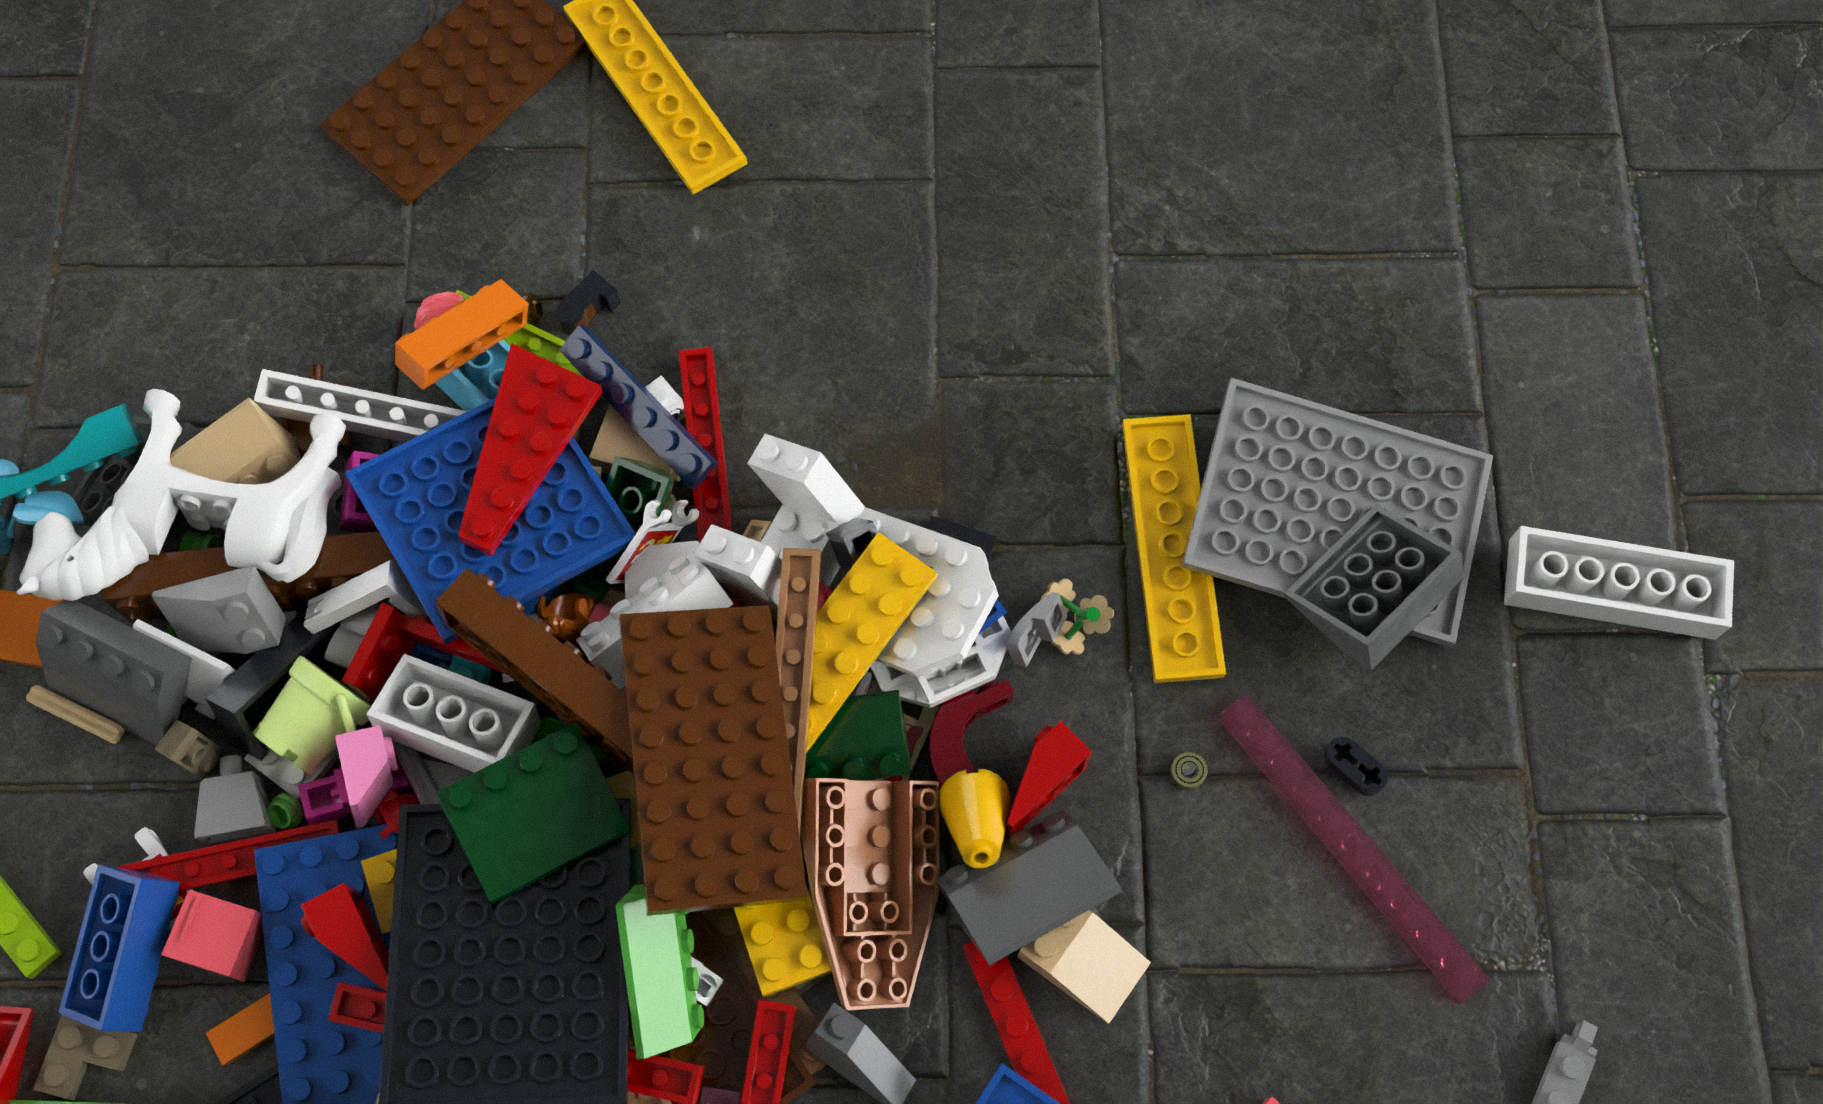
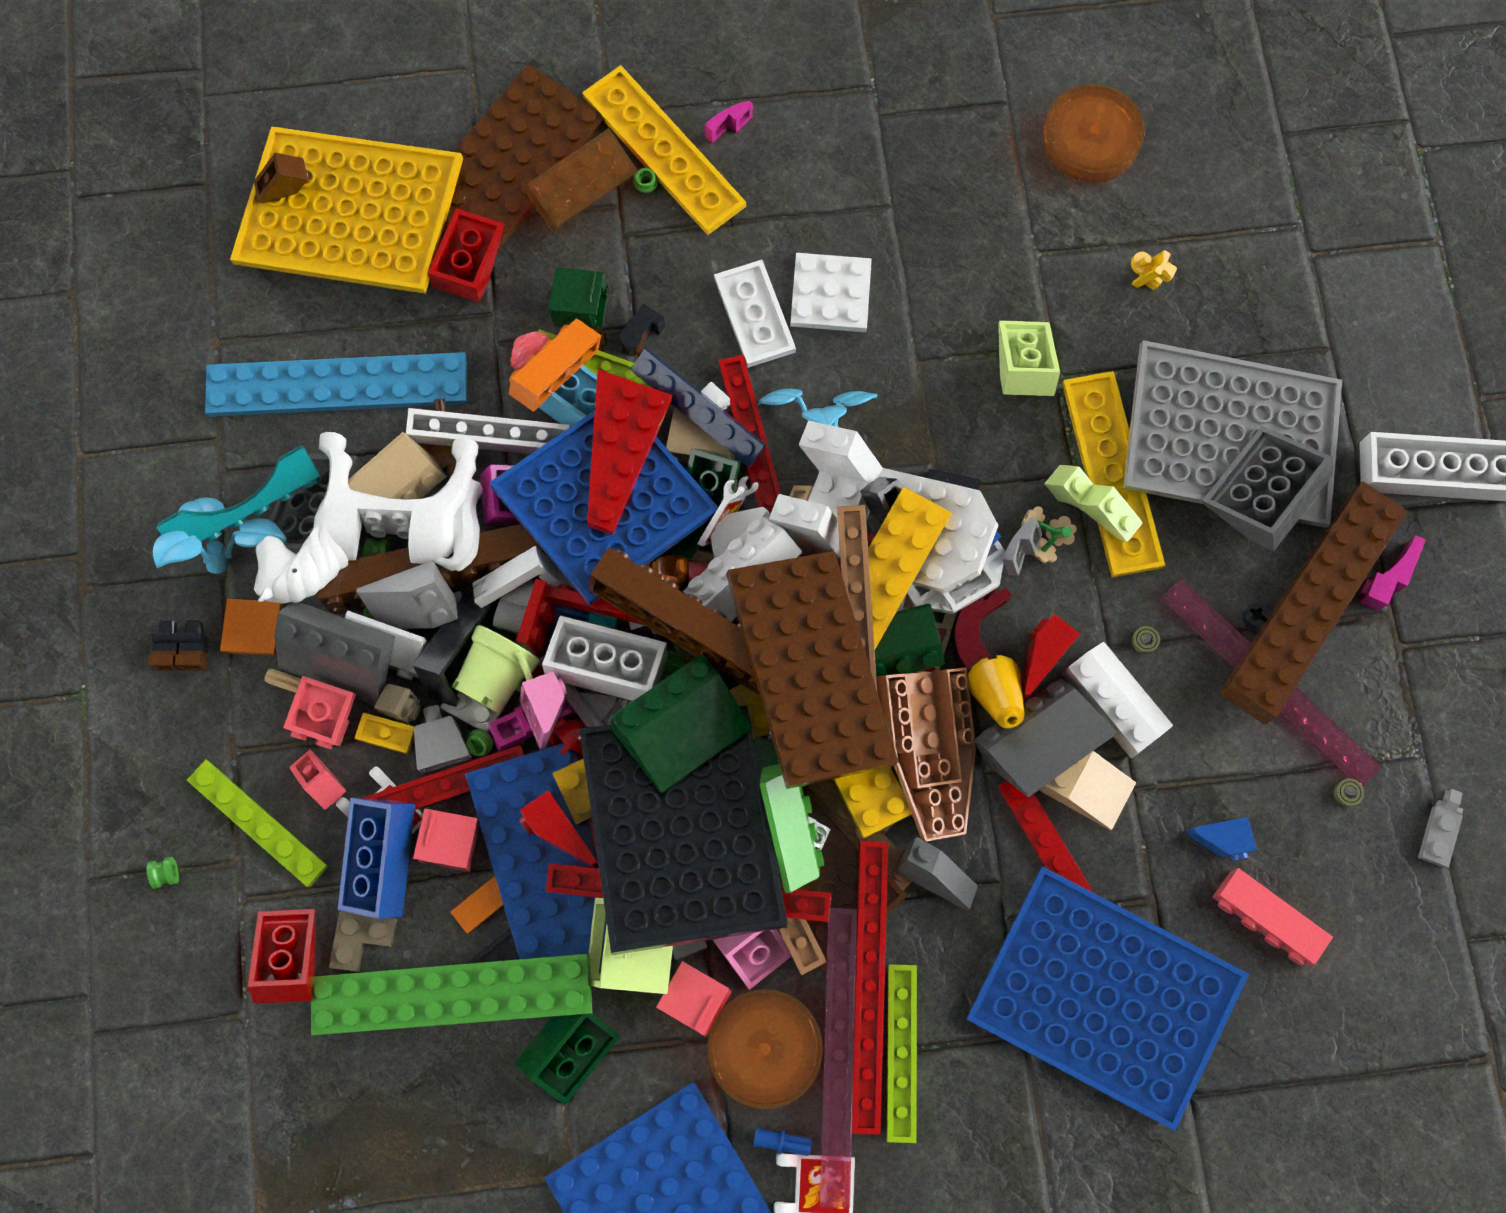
camera: 10 degrees left, 5 degrees up
(66, 837) = (317, 779): none -> coral slope
(85, 749) = (319, 712): none -> coral plate
(165, 785) = (385, 733): none -> yellow plate
(167, 73) = (280, 178): none -> reddish brown slope
(192, 334) = (335, 384): none -> dark azure plate
(245, 121) = (362, 216): none -> yellow plate
(380, 190) = (466, 255): none -> red slope
(513, 252) = (579, 296): none -> dark green piece
(540, 111) = (580, 180): none -> clear orange brick
(623, 113) = (645, 174): none -> bright green plate
(736, 297) = (754, 313): none -> white plate
(748, 52) = (732, 117): none -> dark pink slope
(795, 430) = (827, 415): none -> medium azure plant
(838, 280) = (831, 292): none -> white plate
(1079, 387) = (1027, 358): none -> yellowish green slope
(1139, 846) = (1118, 698): none -> white slope
(1144, 579) = (1100, 502): none -> yellowish green arch
(1203, 113) = (1093, 133): none -> clear orange brick
(1257, 290) = (1152, 270): none -> yellow hips
(1263, 1053) = (1226, 838): none -> blue slope
(1417, 746) = (1313, 603): none -> reddish brown brick
(1441, 1009) = (1348, 792): none -> olive tile
(1514, 733) = (1380, 587): none -> dark pink slope

